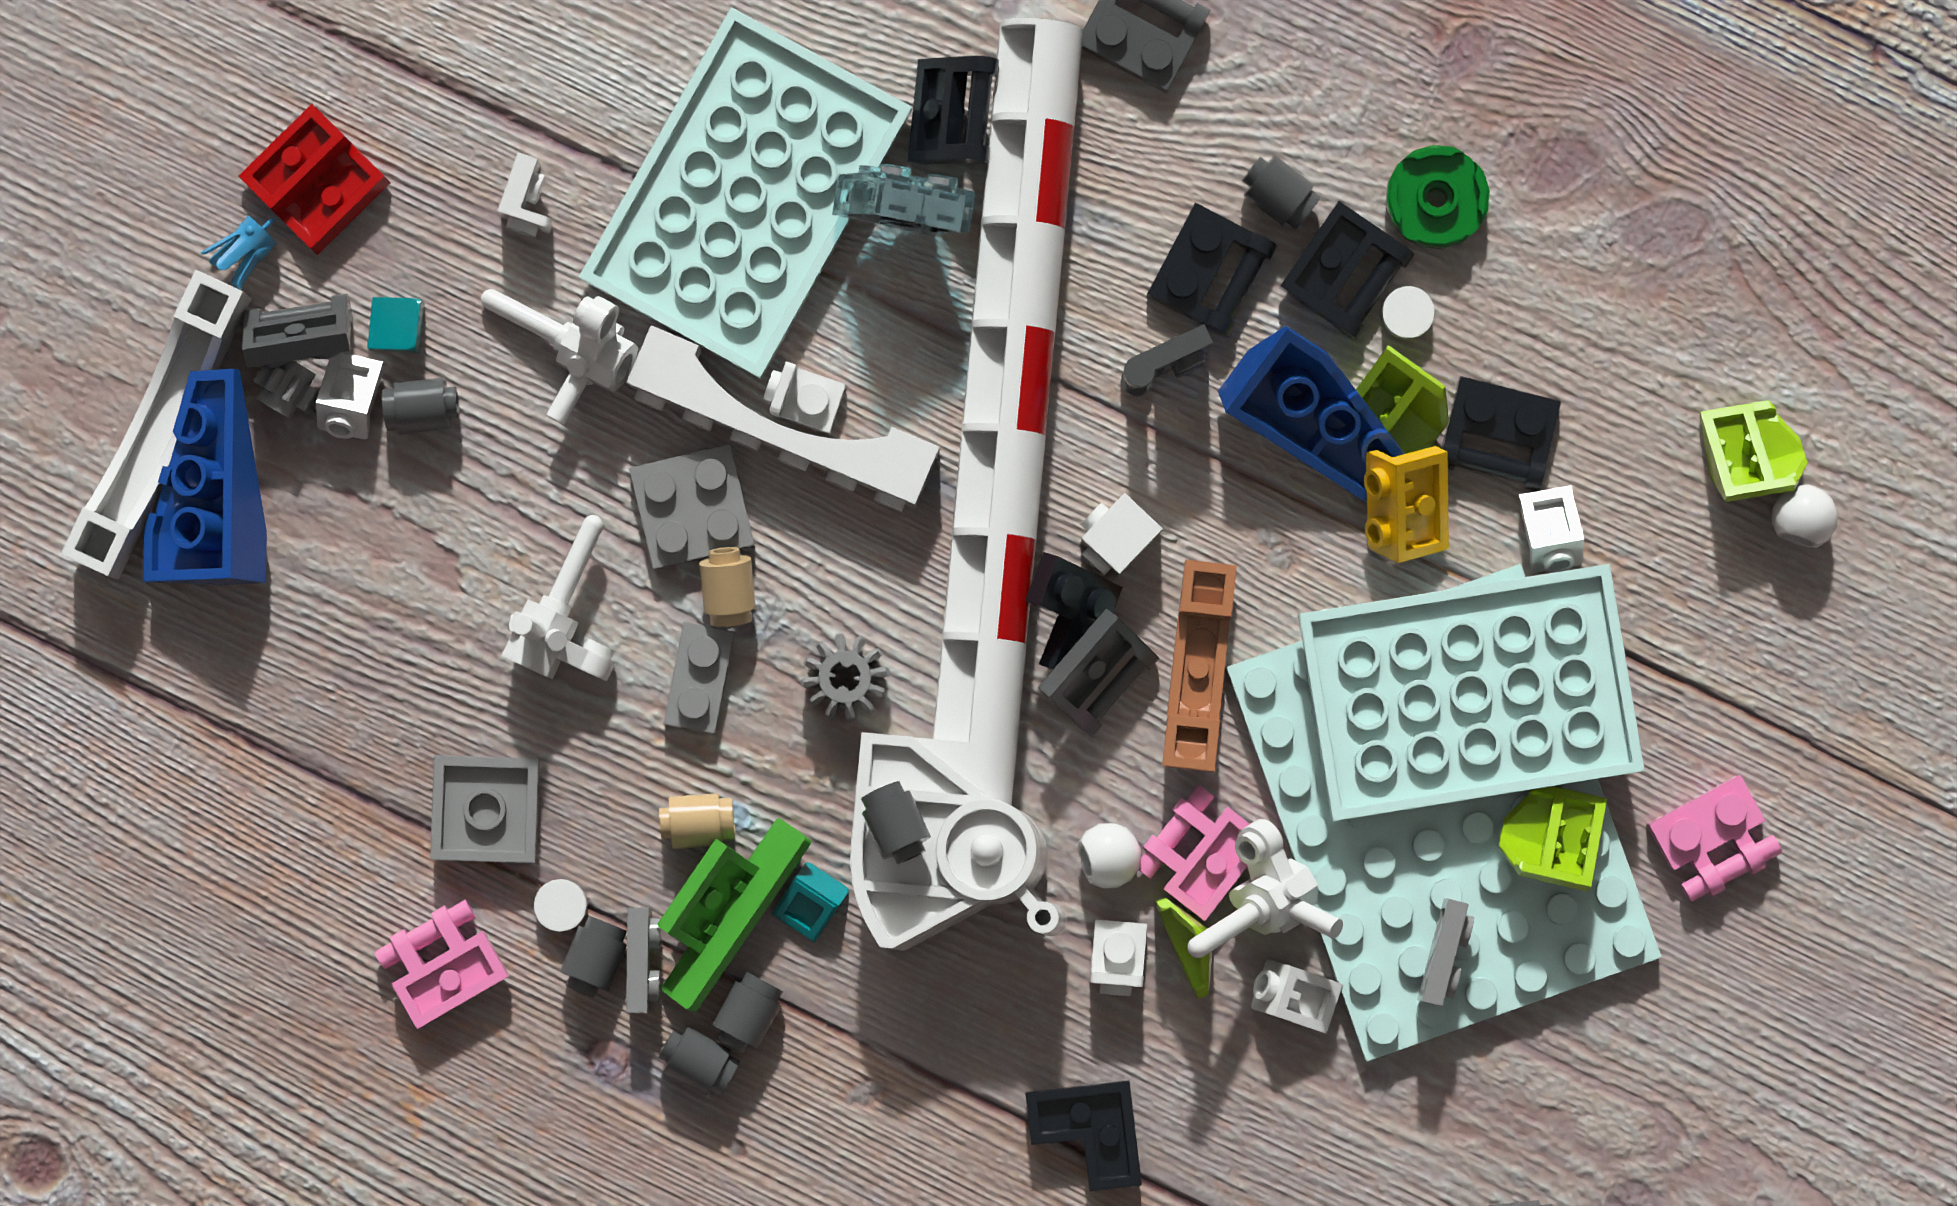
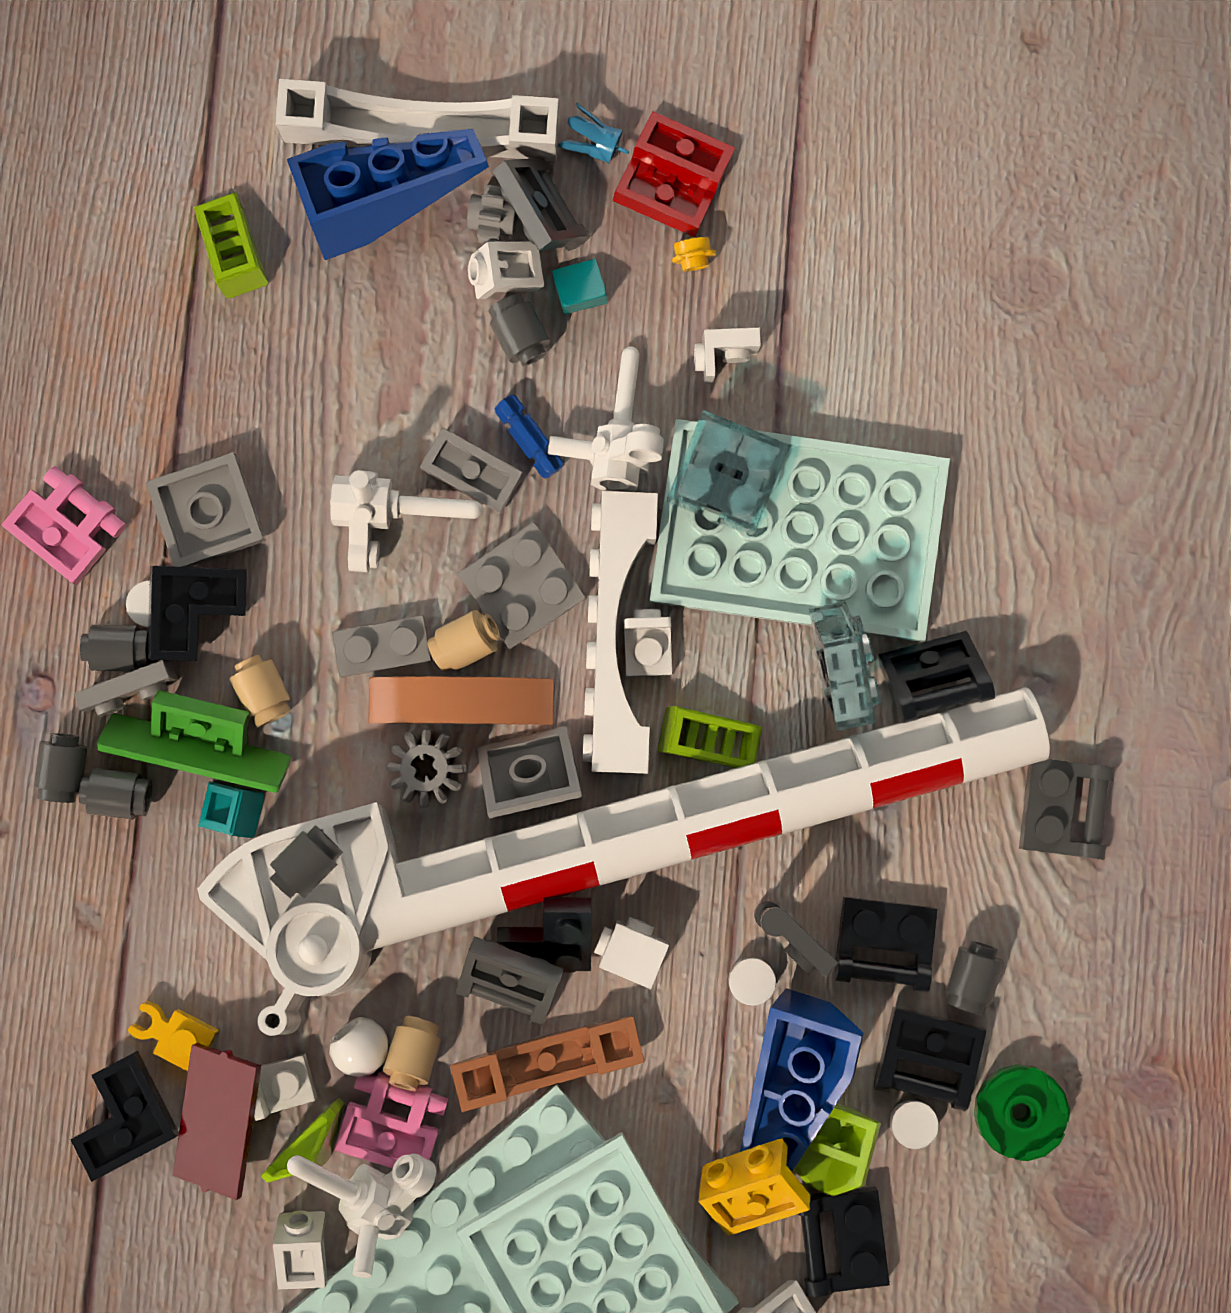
camera: 65 degrees right, 0 degrees up
(248, 675) = (240, 272): none -> lime slope
(409, 191) = (693, 253): none -> yellow plate
(535, 439) = (528, 436): none -> blue axle
(550, 513) = (471, 470): none -> light grey plate
(570, 870) = (178, 599): none -> black plate
(686, 243) = (705, 486): none -> clear light blue piece
(788, 616) = (461, 700): none -> nougat slope
(890, 571) = (528, 772): none -> light grey slope
(903, 406) = (672, 728): none -> lime slope
(1030, 1041) = (174, 1034): none -> yellow plate
(1128, 1030) = (217, 1120): none -> dark red piece
(1136, 802) = (412, 1053): none -> tan brick
(1197, 424) = (751, 981): none -> white tile

